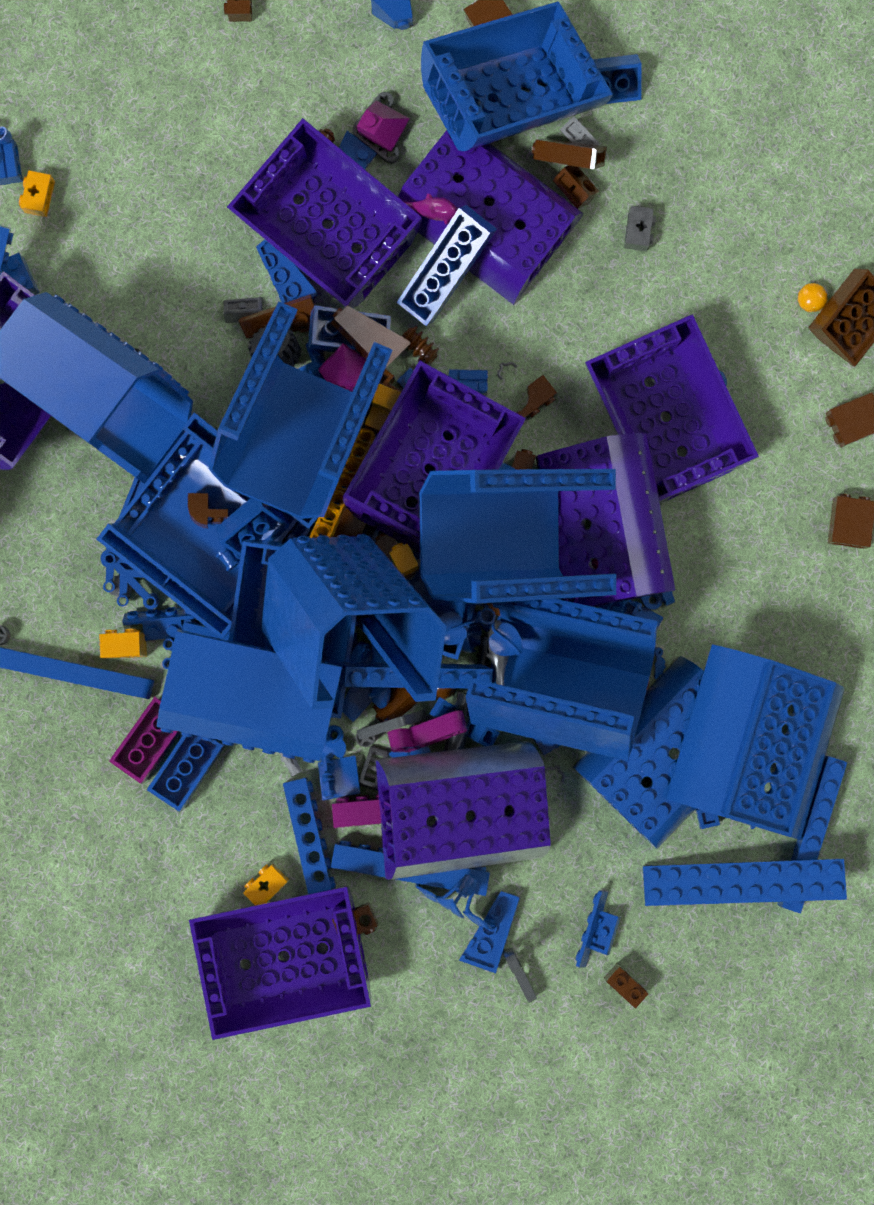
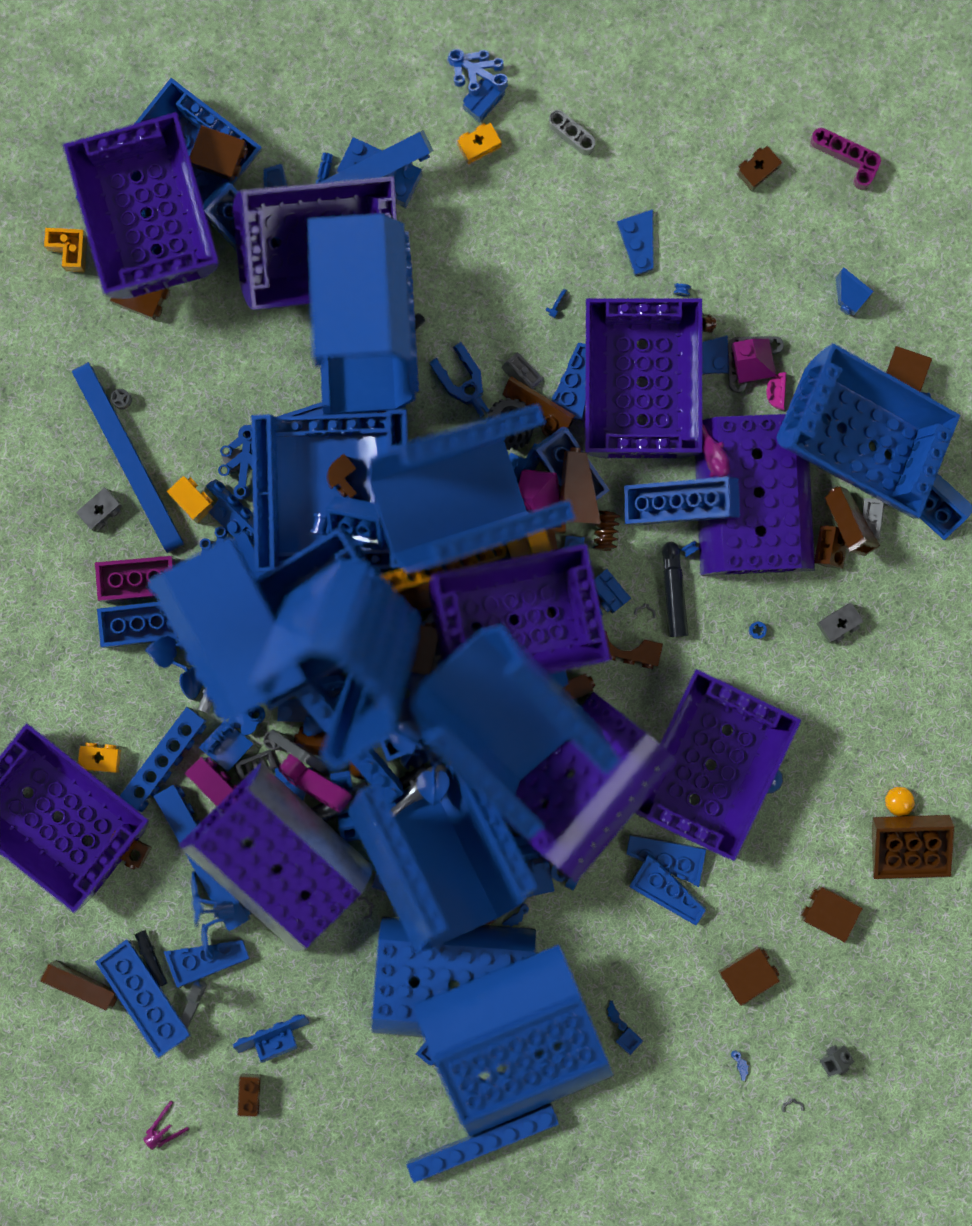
camera: 50 degrees right, 0 degrees up
(68, 713) = (89, 511): none -> flat silver brick
(81, 113) = (568, 124): none -> light grey beam
(216, 246) = (553, 312): none -> blue piece
(217, 137) = (638, 240): none -> blue wing
(219, 349) = (459, 392): none -> blue piece
(226, 765) = (163, 654): none -> blue plant
(281, 133) = (682, 290): none -> blue bush
(403, 559) = (425, 658): light orange brick -> none
(421, 128) = (776, 391): none -> dark pink plate
(430, 1049) = (79, 985): none -> reddish brown slope
(459, 976) = (149, 955): none -> black pin
(482, 1007) = (143, 998): none -> blue plate
(487, 294) = (690, 548): none -> blue bush
(509, 333) = (674, 591): none -> black piece
(595, 300) = (759, 624): none -> blue bush
(598, 1087) = (154, 1138): none -> magenta plant
(715, 503) = (678, 859): none -> blue wing
(732, 531) = (661, 887): none -> blue wing
(745, 882) = (401, 1120): blue plate -> none
(797, 651) = (614, 1015): none -> blue piece
(826, 655) = (629, 1040): none -> blue plate

